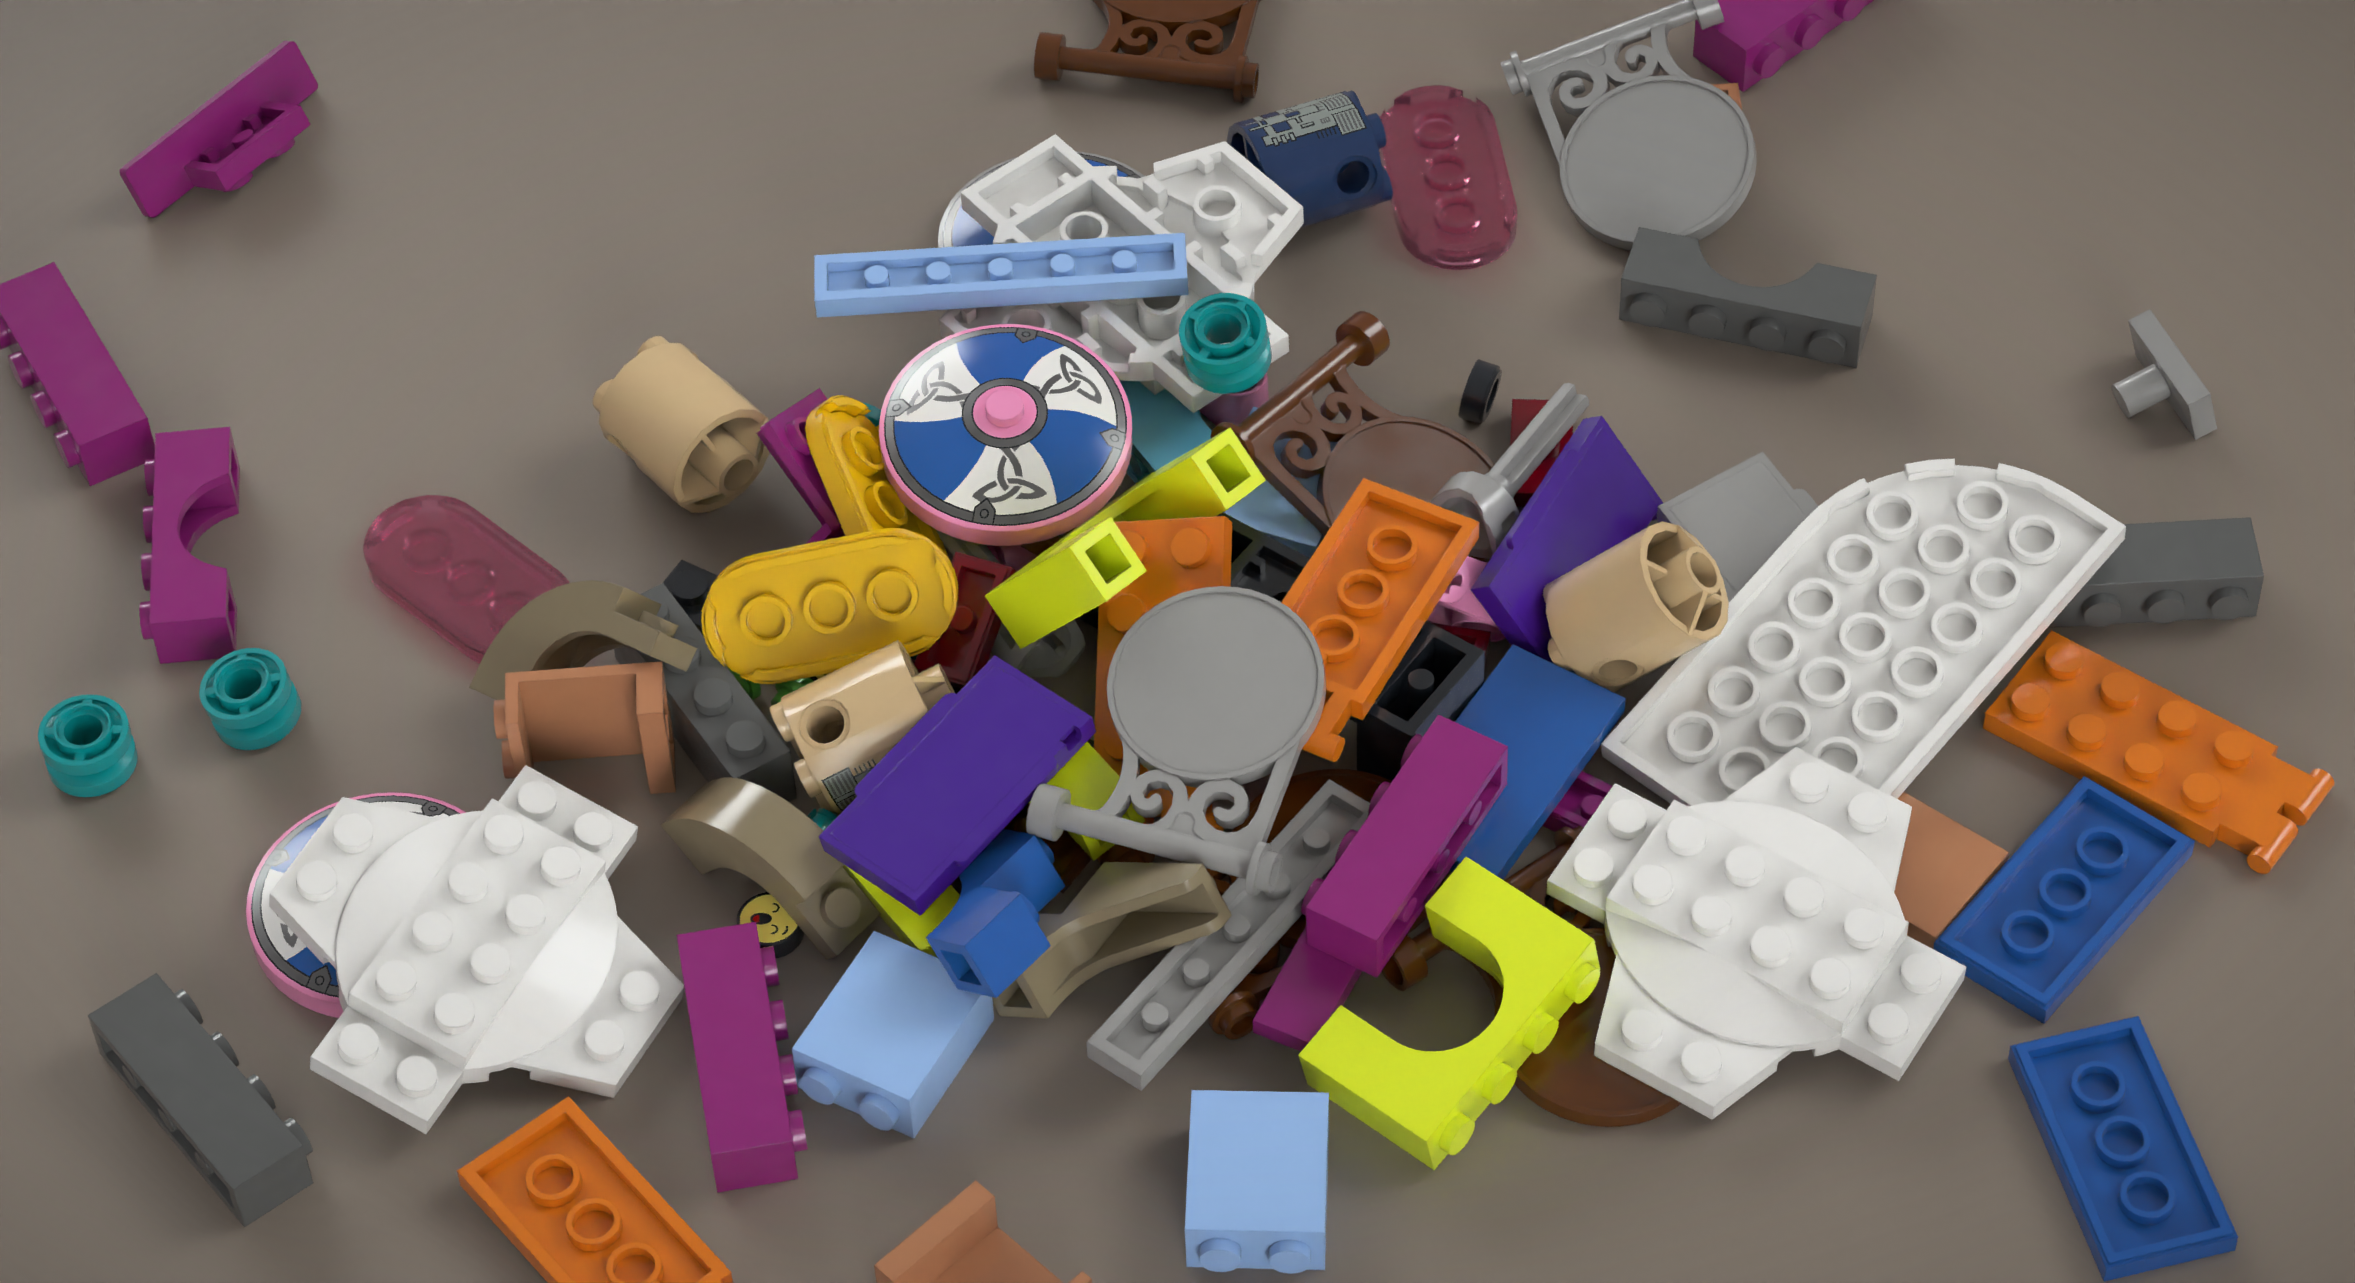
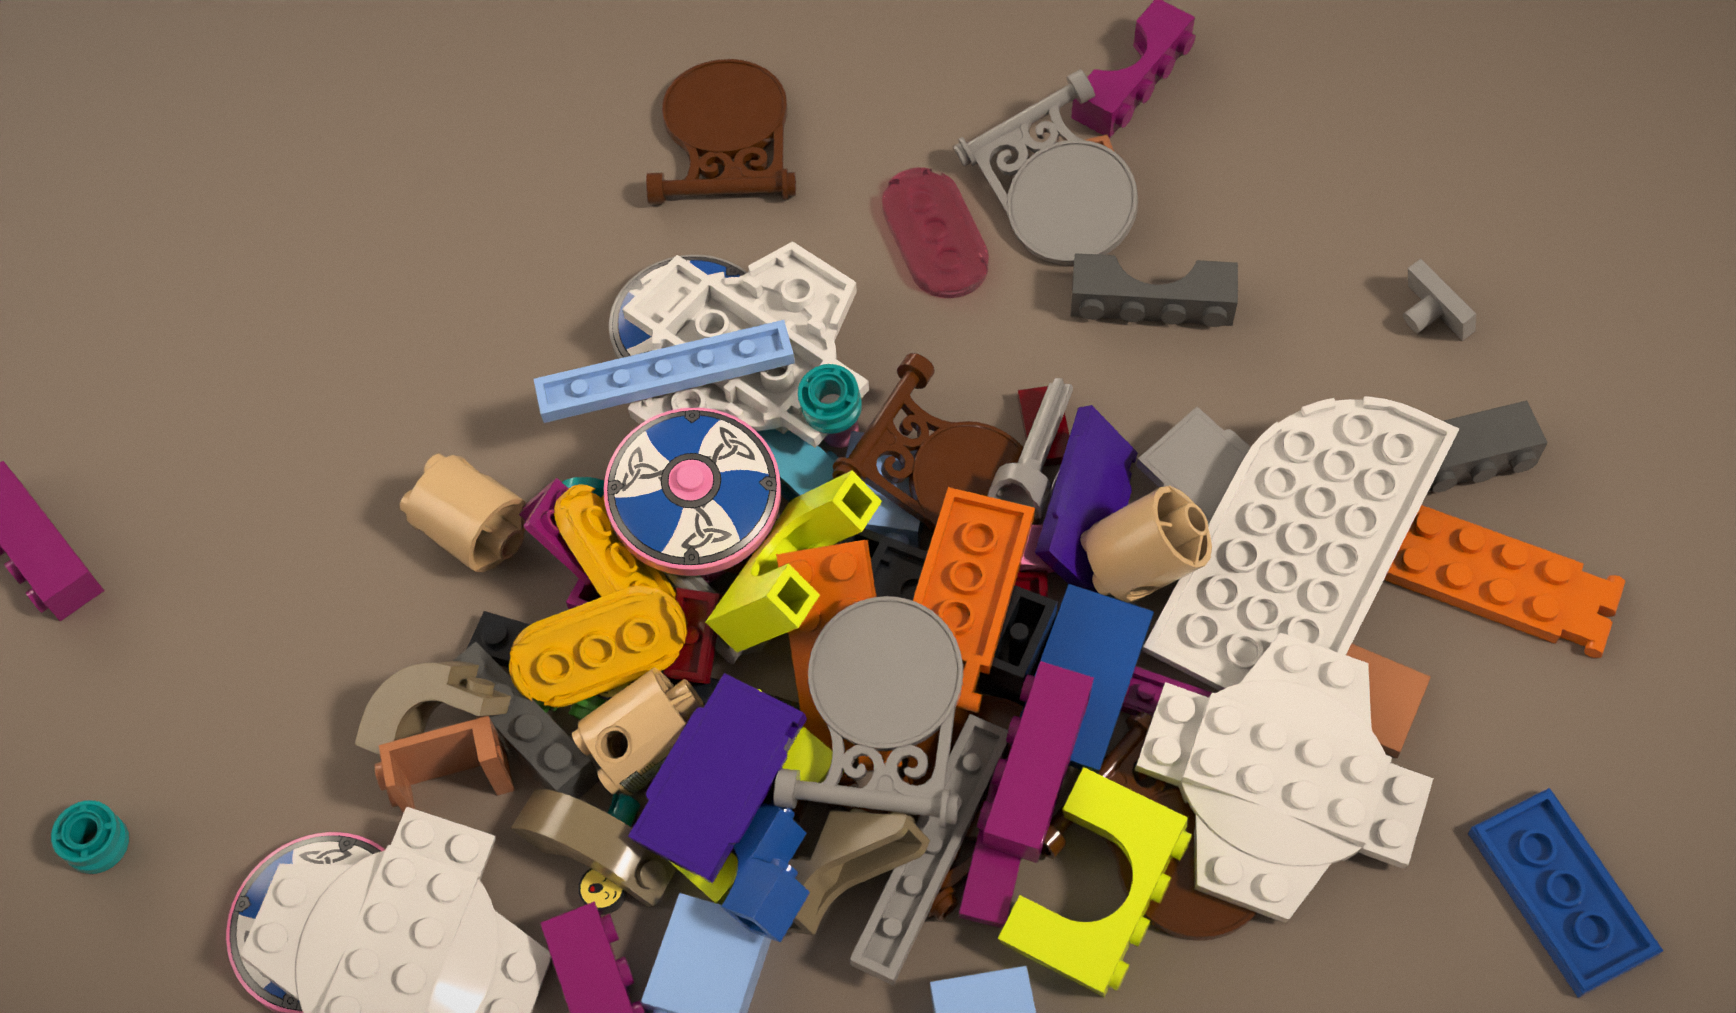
camera: 10 degrees left, 10 degrees up
(192, 489) = (144, 710): magenta arch -> none
(227, 134) = (110, 338): magenta bracket -> none
(250, 699) = (188, 765): teal wheel -> none
(454, 569) = (333, 647): clear pink tile -> none
(1319, 155) = (852, 235): dark blue cylinder -> none
(1480, 392) = (996, 389): black tile -> none
(2064, 898) = (1473, 704): blue tile -> none

